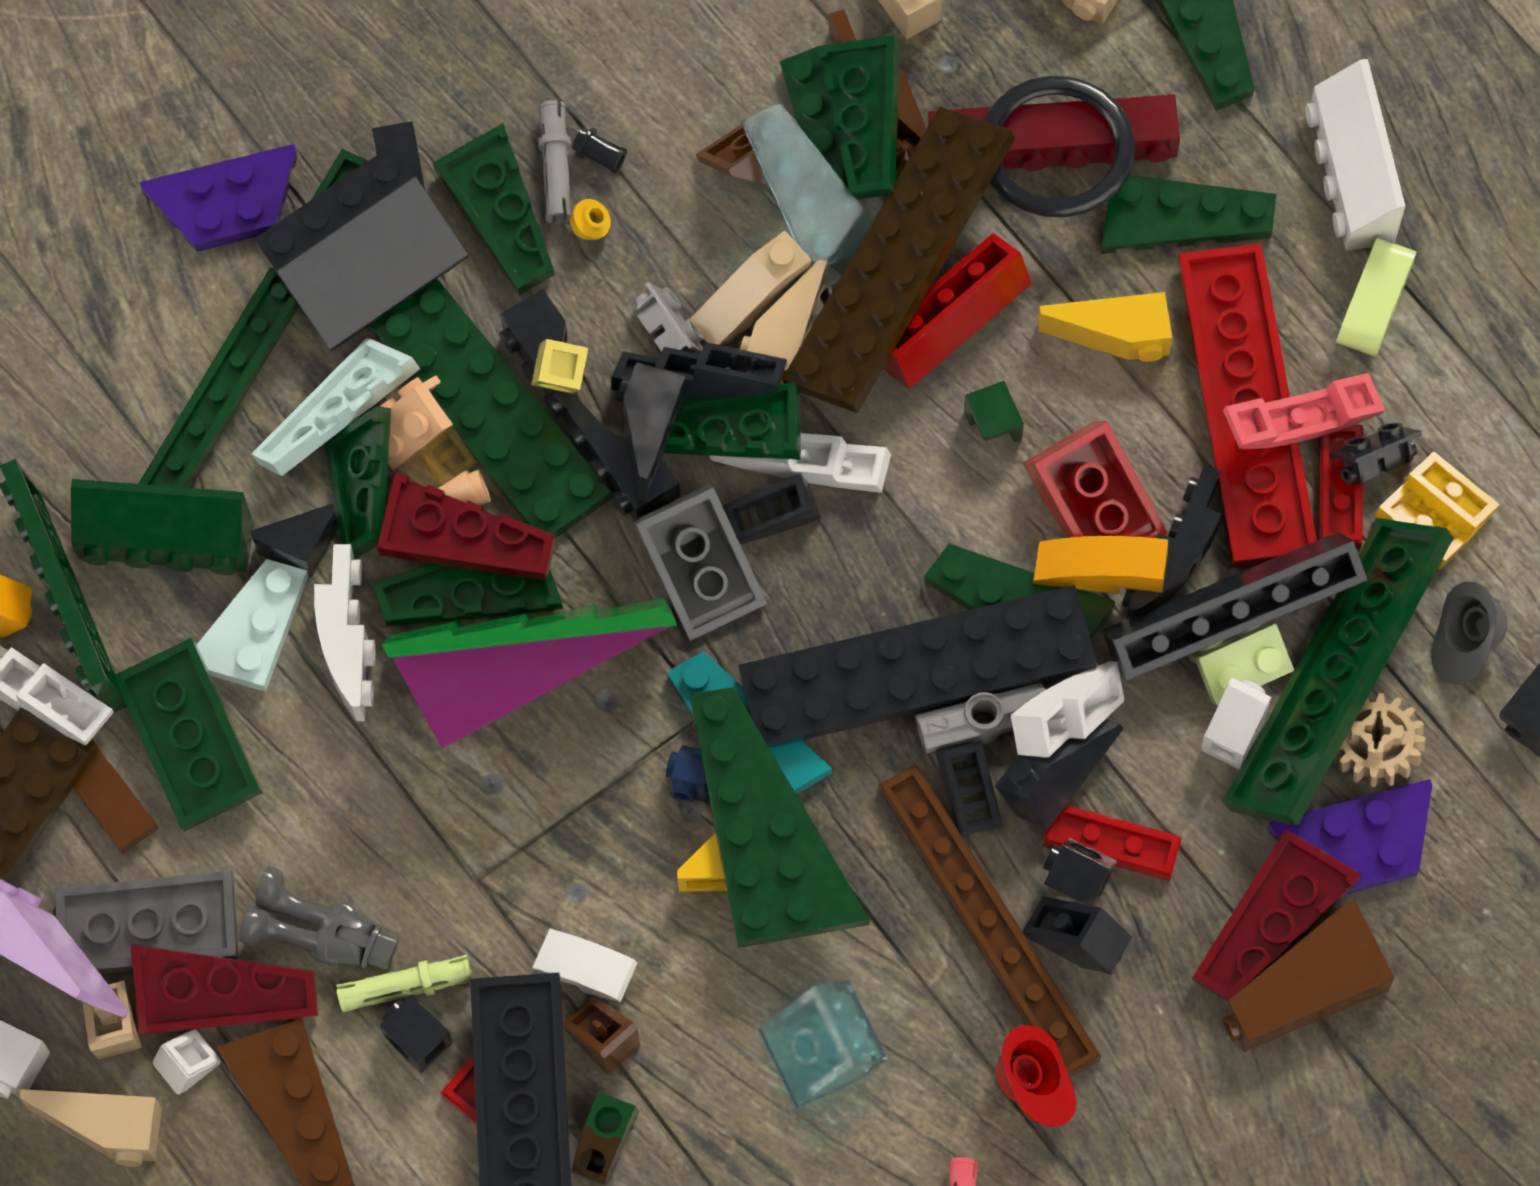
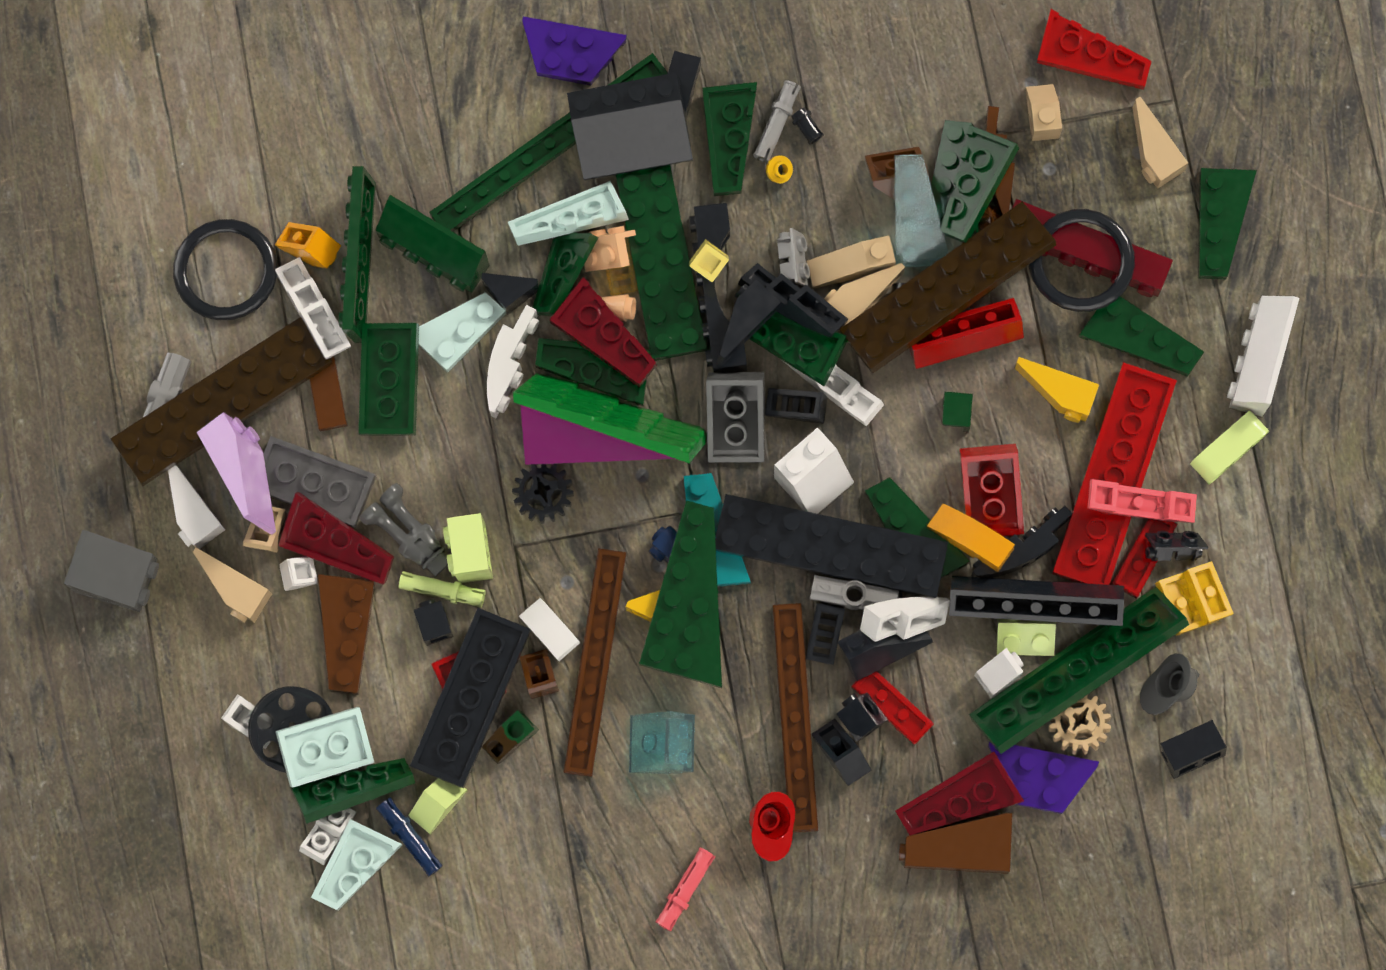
camera: 30 degrees right, 10 degrees up
(418, 904) = (469, 548): none -> yellowish green brick
(493, 770) = (533, 497): none -> black gear
(672, 983) = (595, 663): none -> reddish brown tile
(843, 579) = (813, 473): none -> white slope

